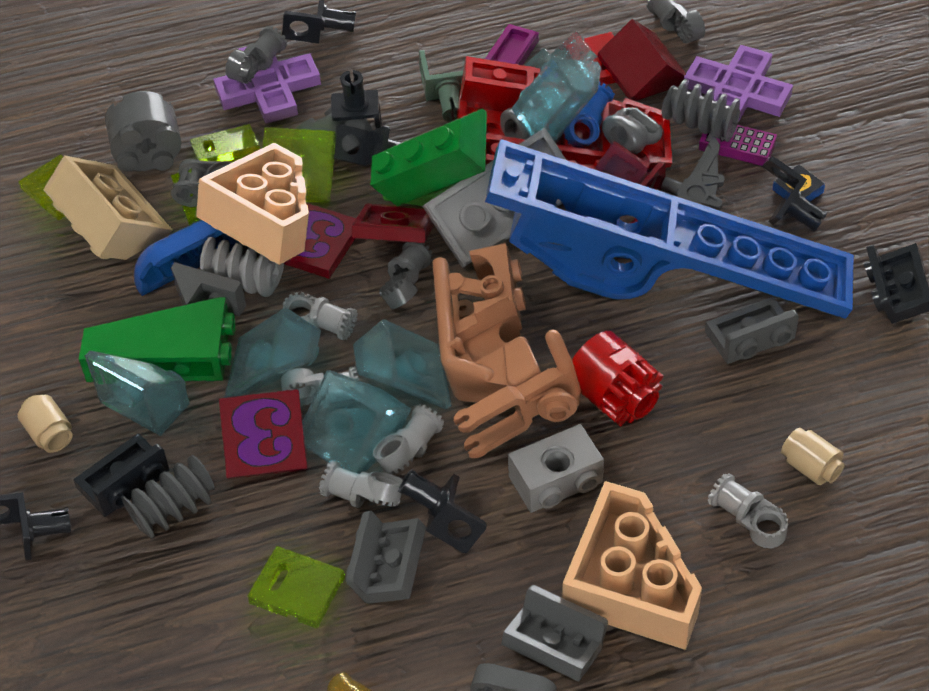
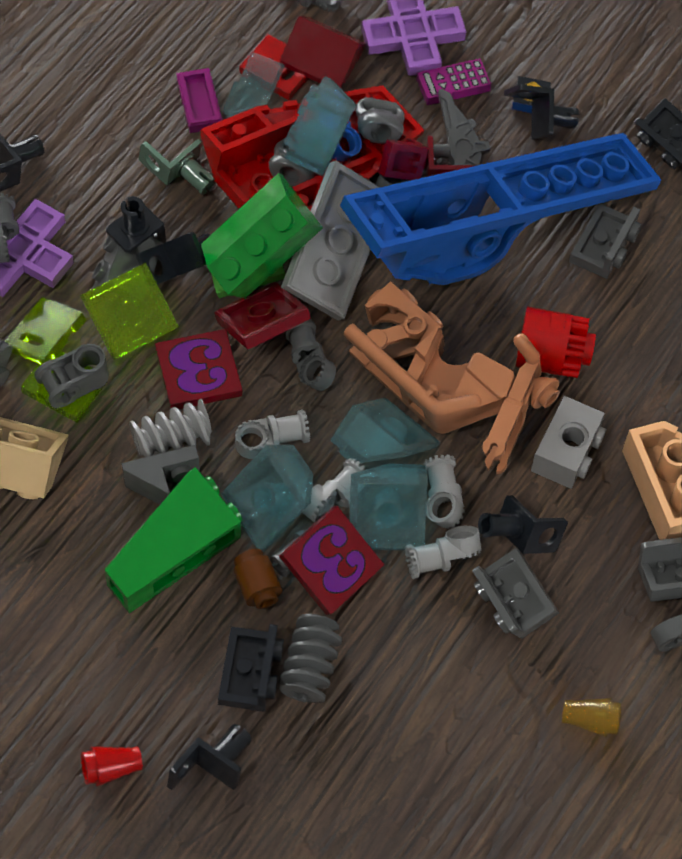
camera: 45 degrees left, 10 degrees up
(45, 423) = (141, 669): tan brick -> none
(138, 390) = (198, 592): clear light blue slope -> none
(181, 247) = (105, 439): blue brick -> none
(194, 412) = (257, 579): none -> reddish brown brick
(259, 202) = (162, 365): light nougat brick -> none
(304, 591) = (471, 658): clear neon green piece -> none
(701, 110) = (419, 68): dark grey piece -> none

